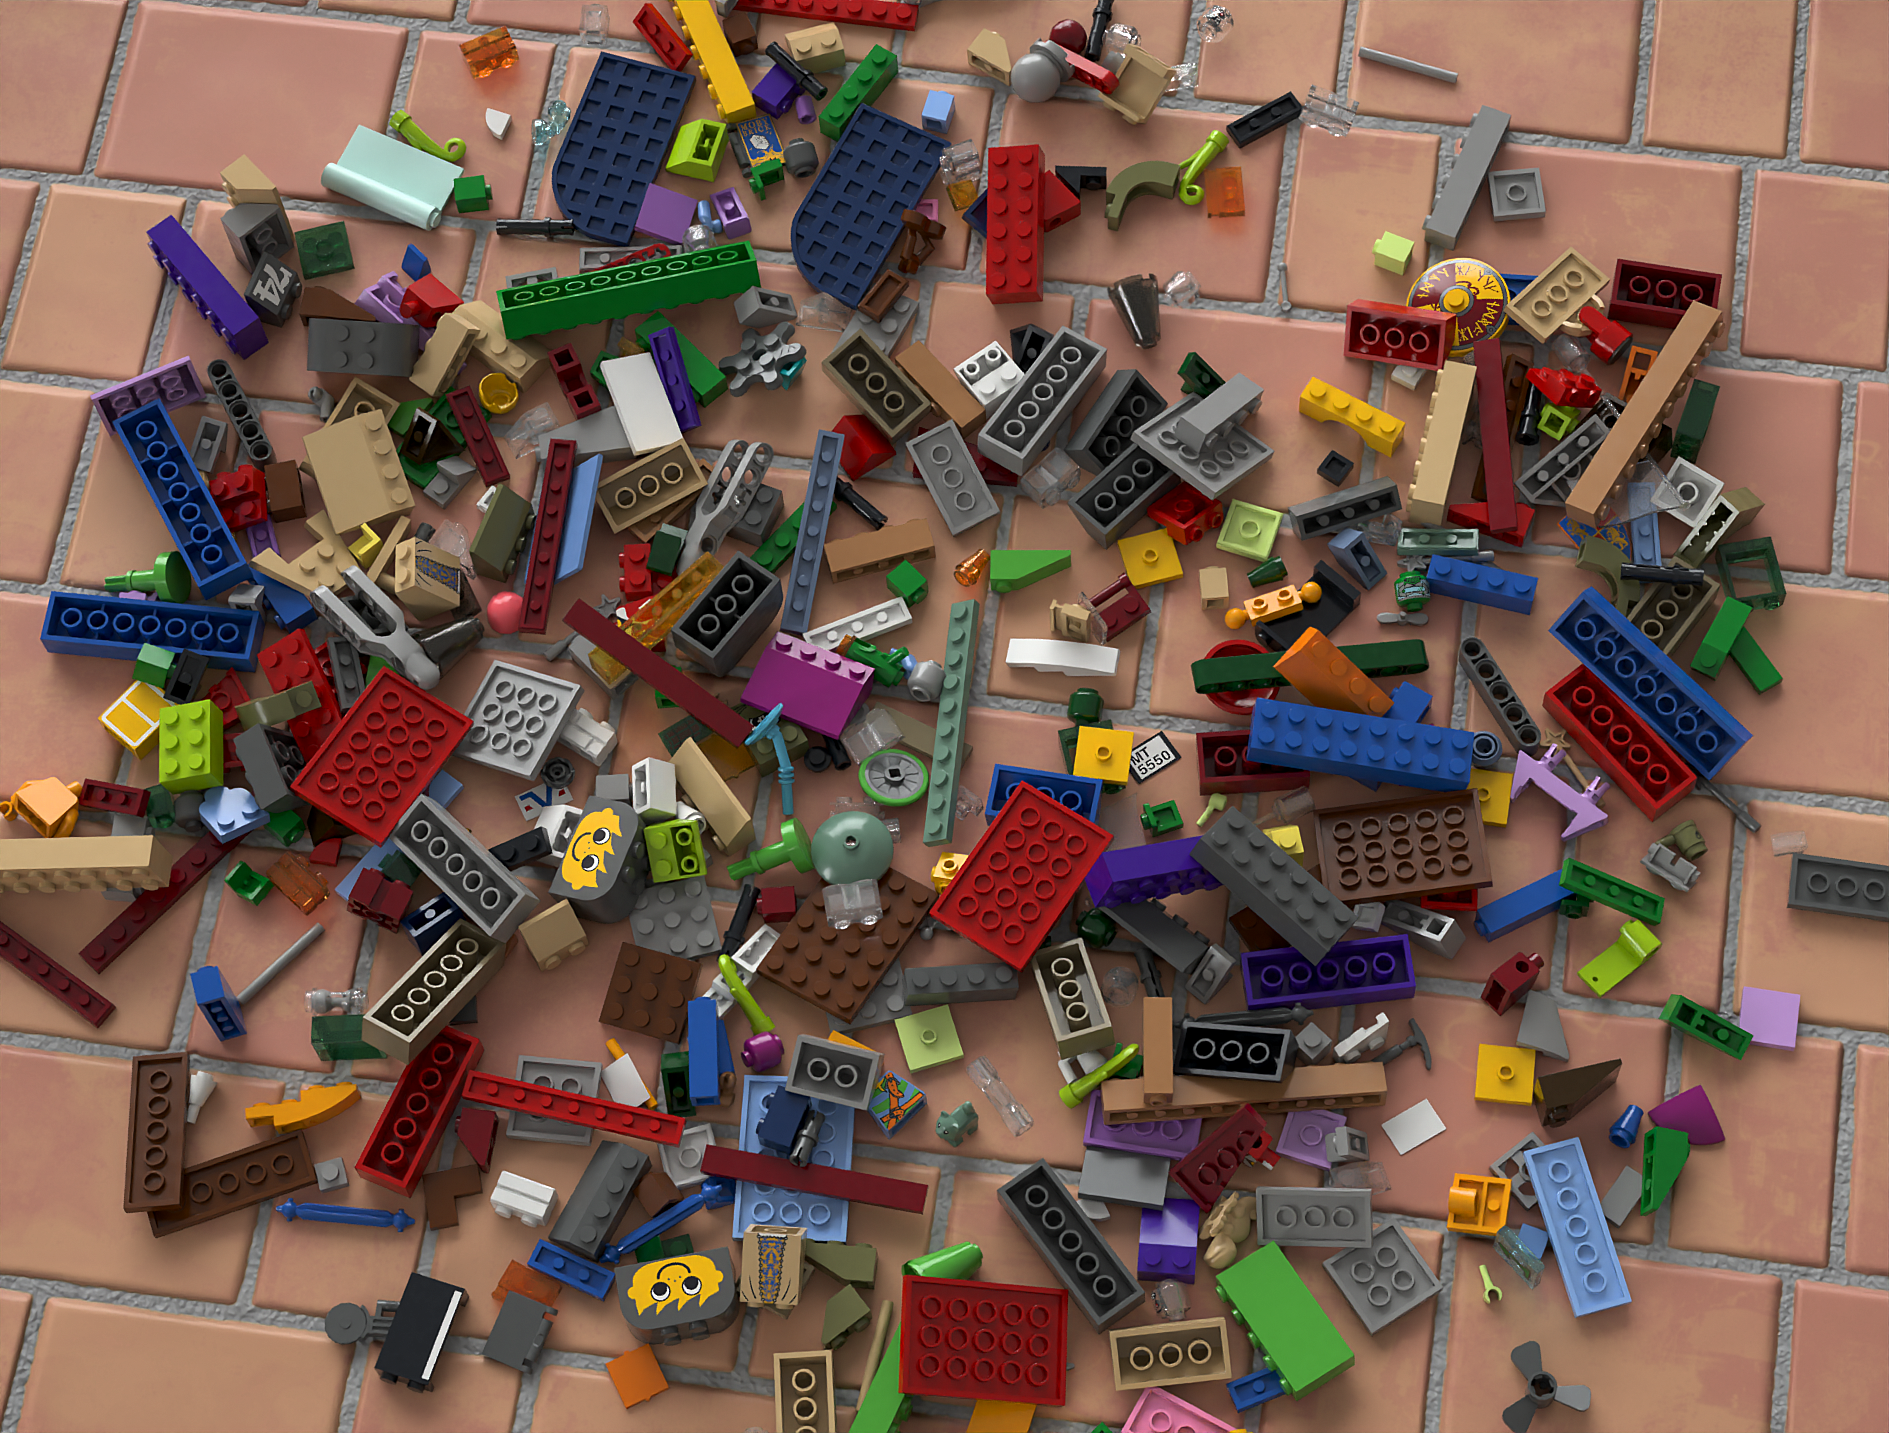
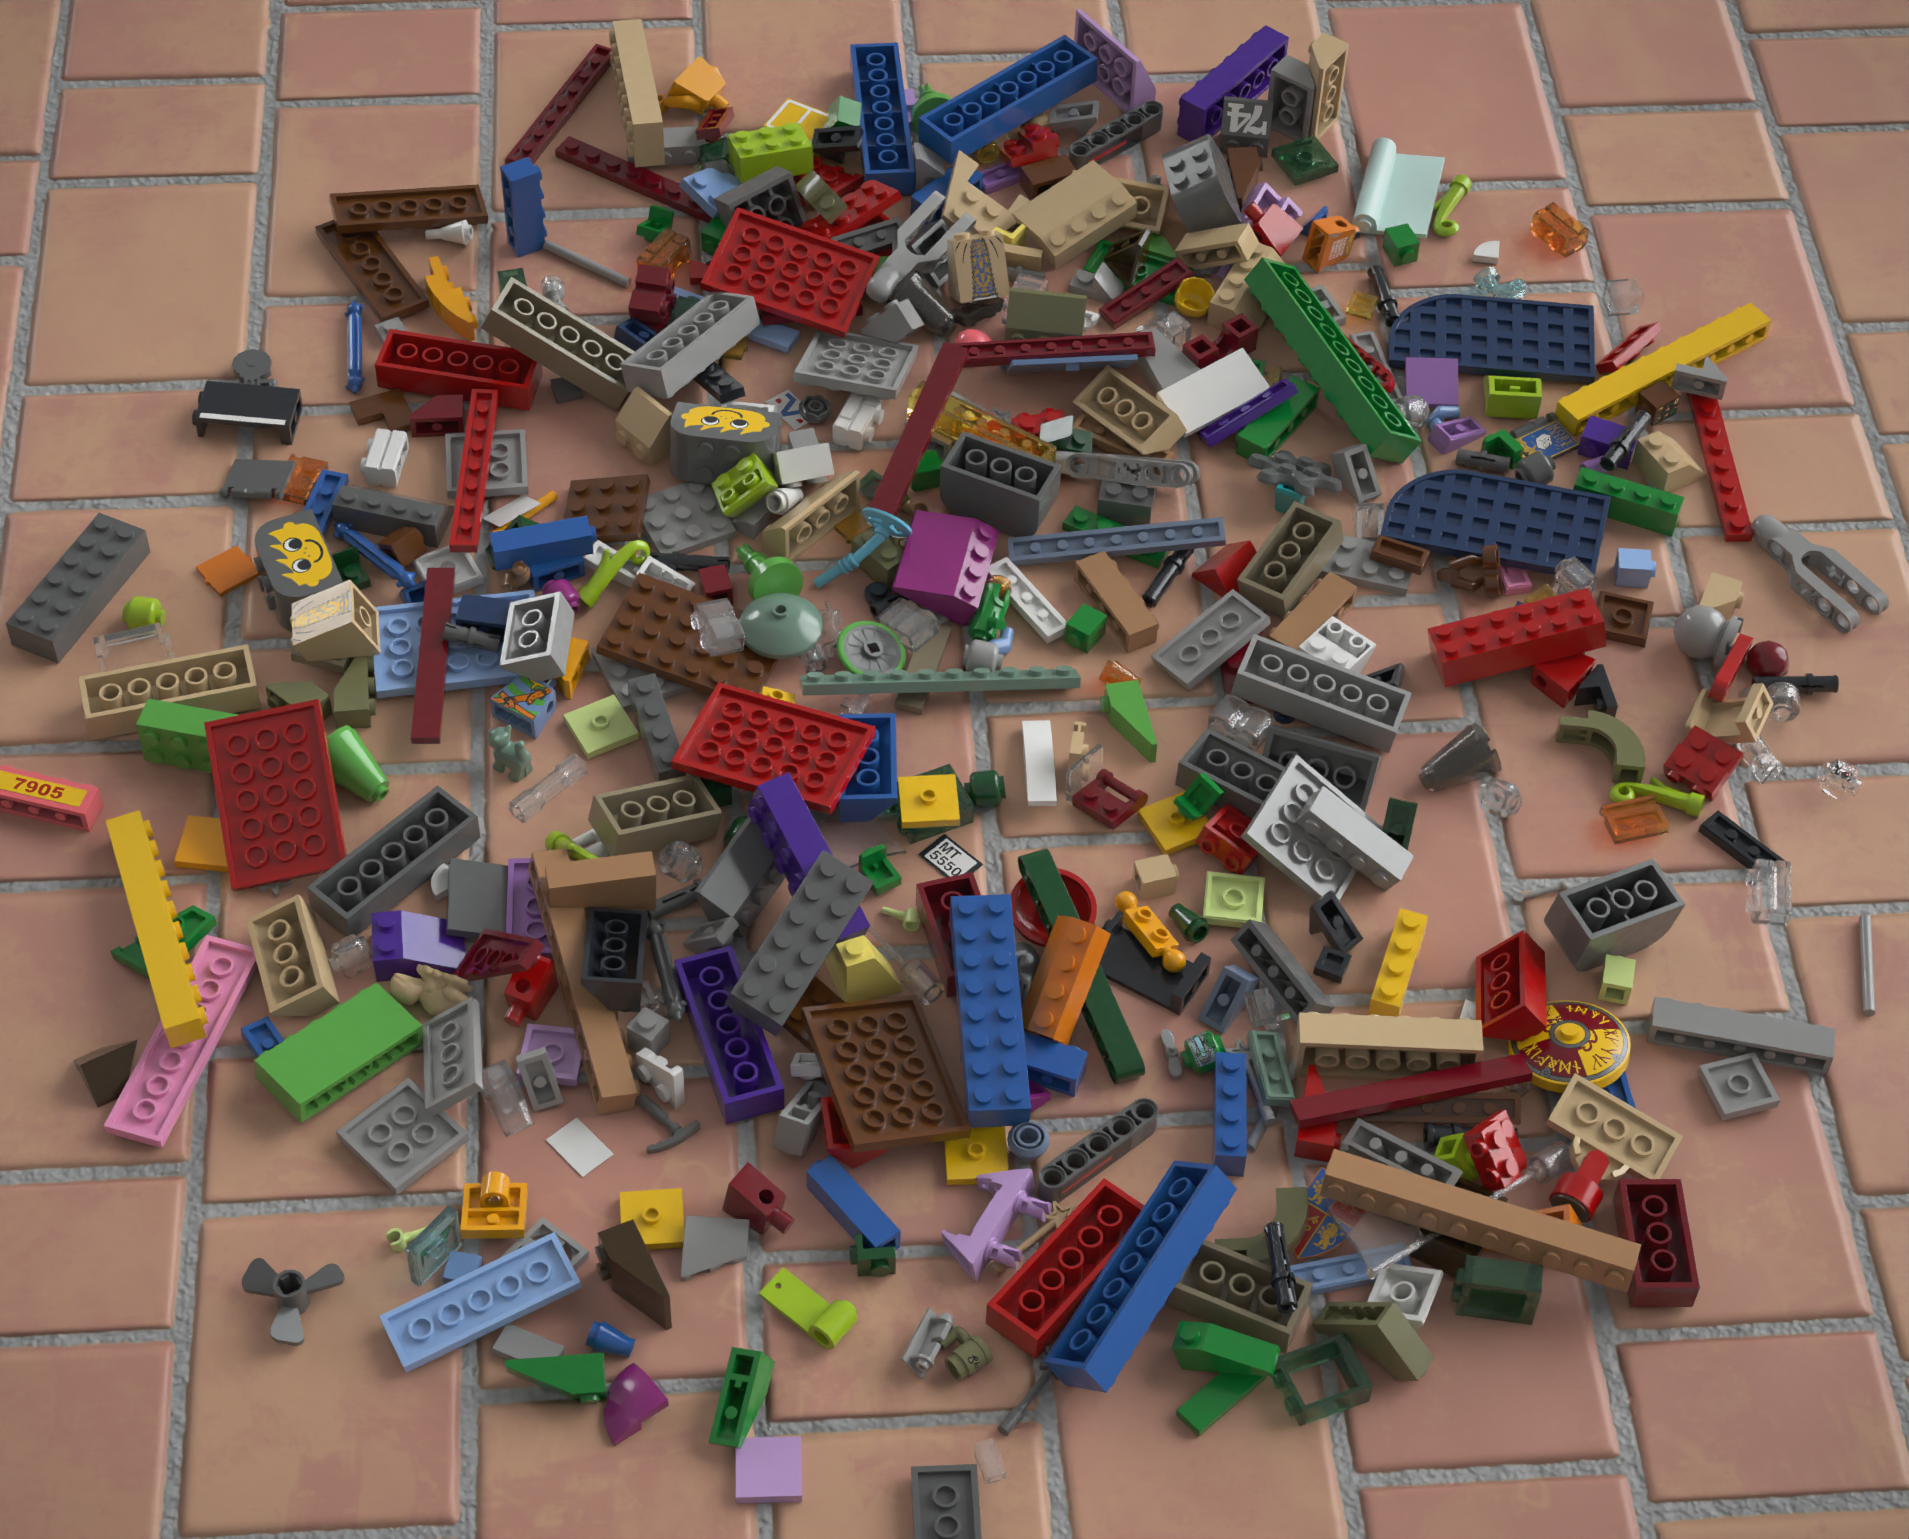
camera: 70 degrees right, 15 degrees down
(452, 244) = (1329, 242): none -> orange torso
(466, 676) = (895, 323): none -> light grey slope
(543, 249) = (1362, 305): none -> clear yellow plate
(774, 198) = (1482, 460): none -> dark grey pin
(990, 131) = (1625, 618): none -> reddish brown tile
(1142, 529) = (1198, 798): none -> green bracket
(1178, 121) = (1702, 763): none -> red plate
(1298, 454) = (1333, 921): none -> black slope
(1345, 232) = (1614, 914): none -> dark grey brick
(1611, 892) = (879, 1278): green plate -> none

